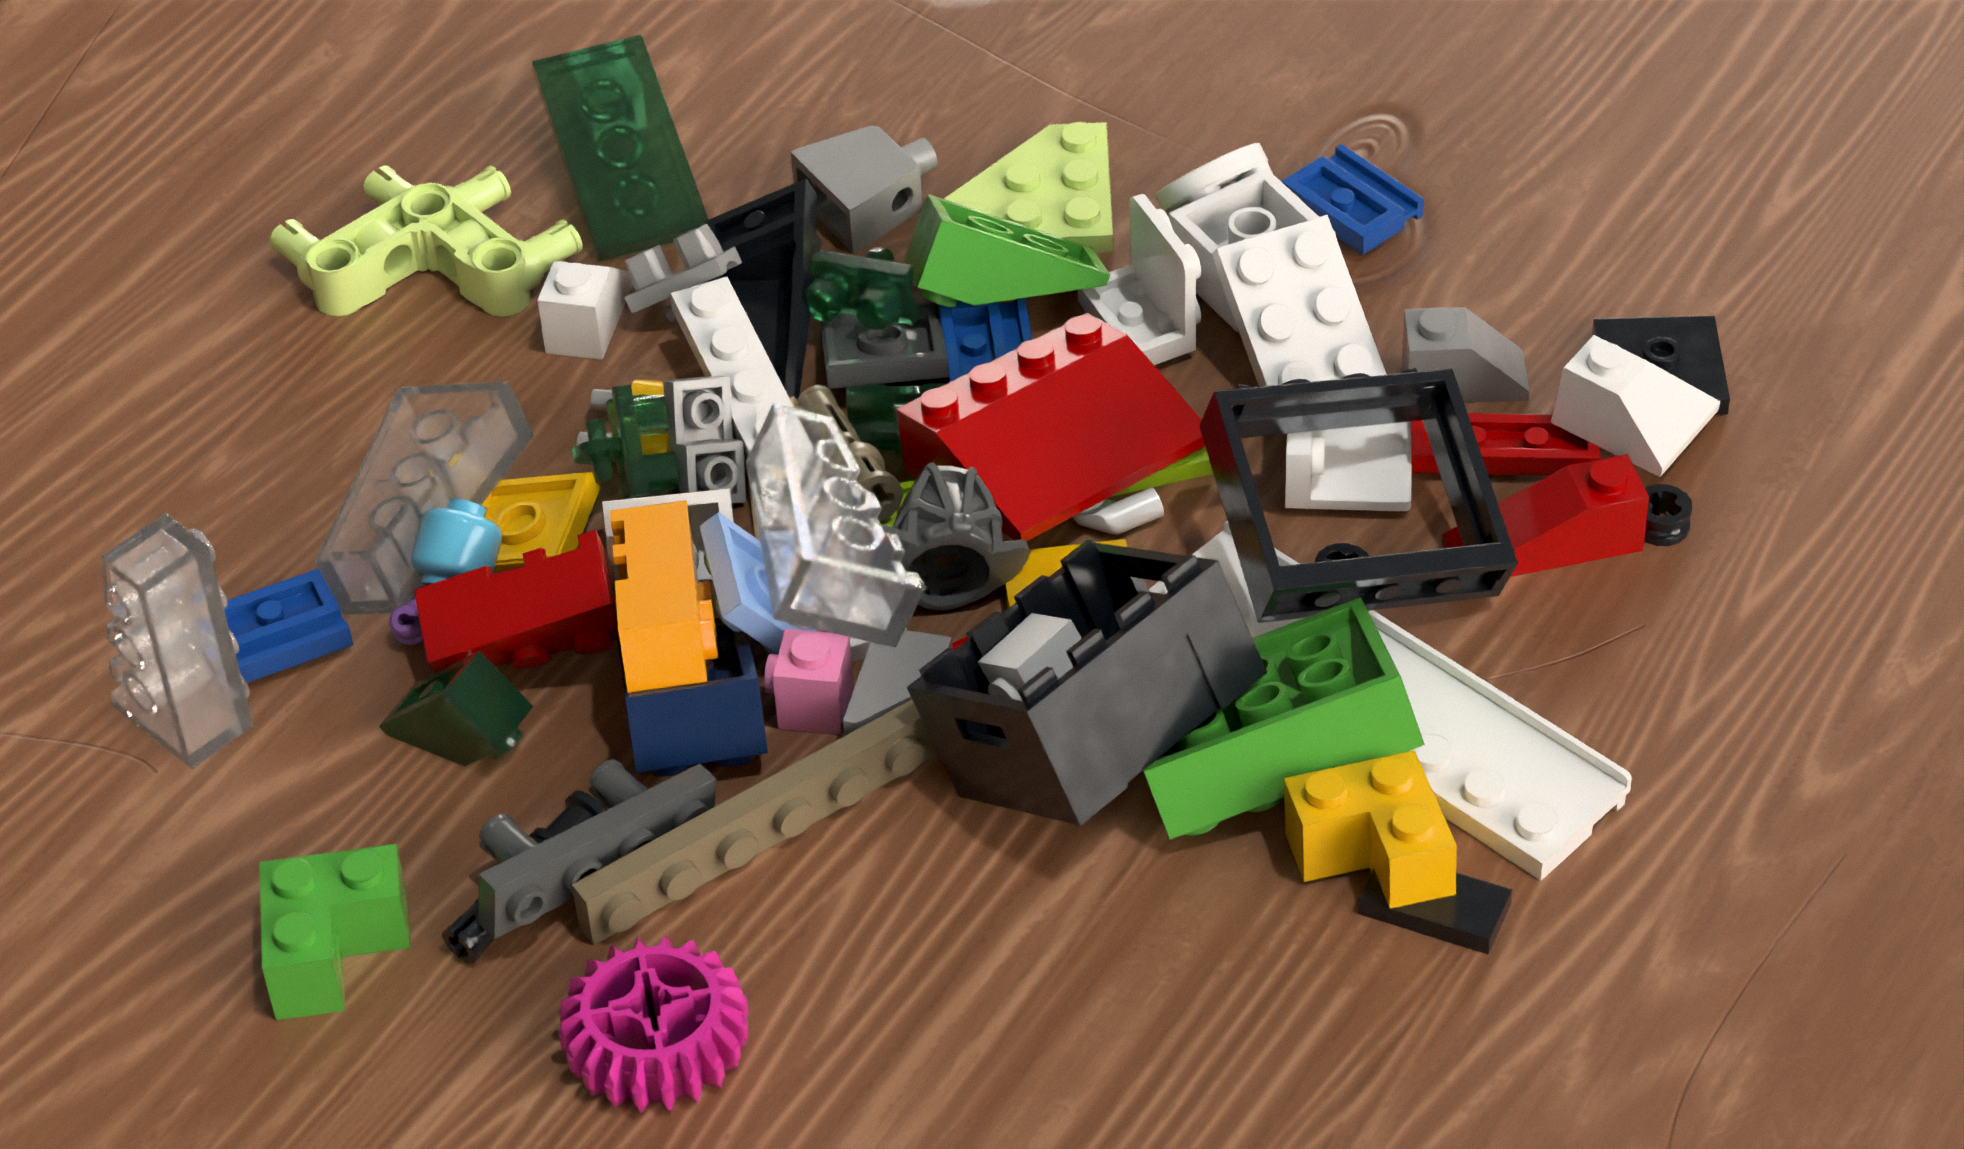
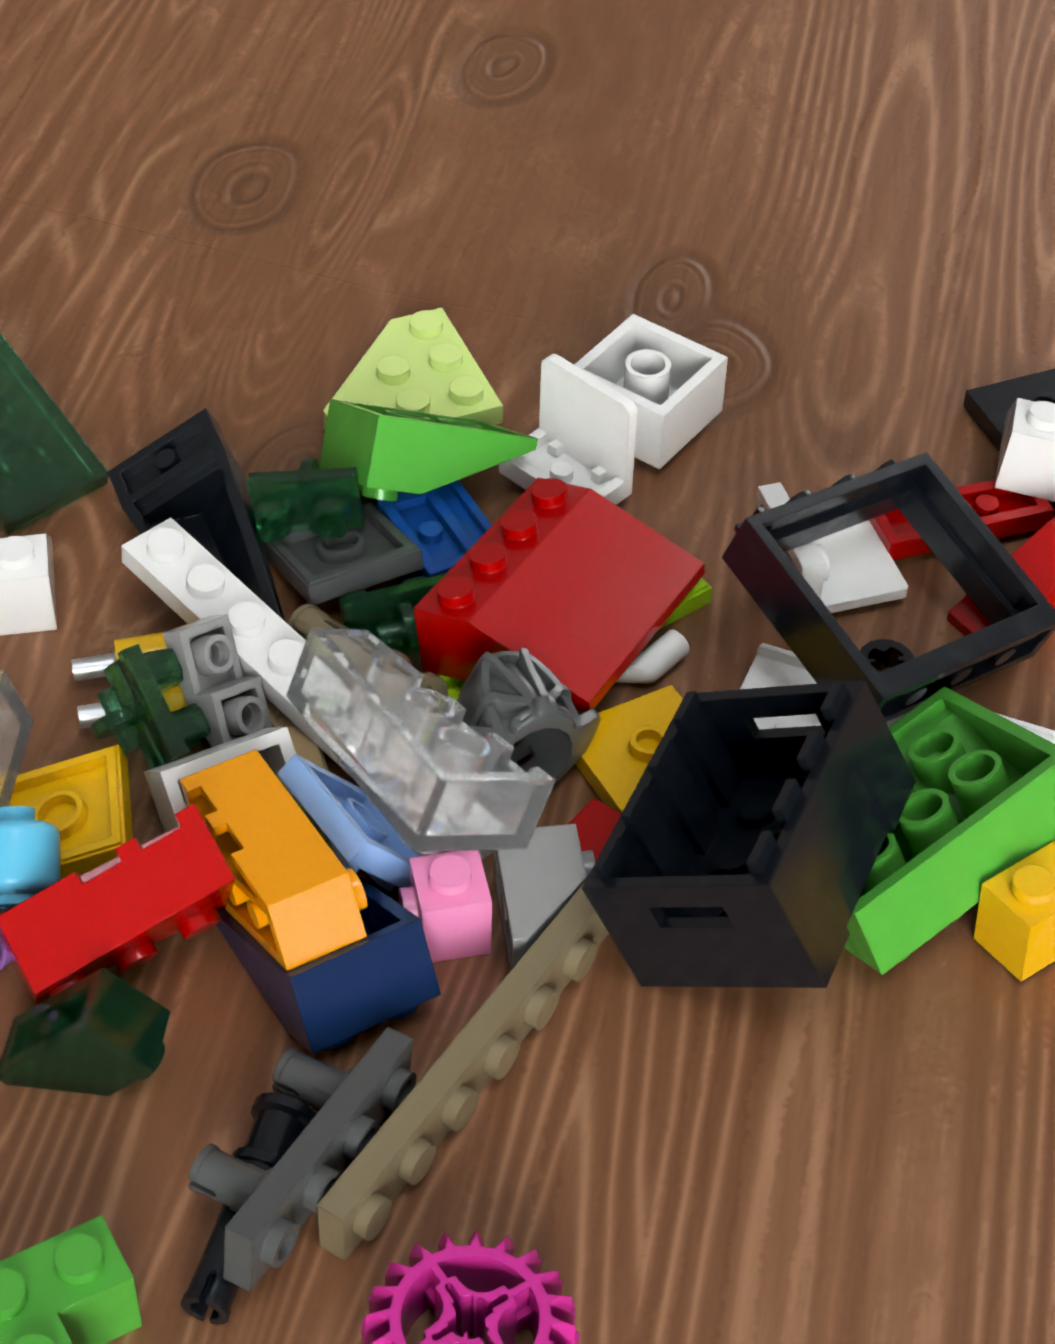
camera: 25 degrees left, 0 degrees up
(655, 280) = (91, 542): light grey hips -> none
(864, 182) = (250, 399): light grey torso -> none
(1026, 651) = (698, 828): white brick -> none
(1213, 177) = (583, 332): white tile -> none
(1297, 304) = (726, 435): white plate -> none
(1357, 197) = (708, 323): blue plate -> none
(1482, 358) = (863, 439): light grey slope -> none

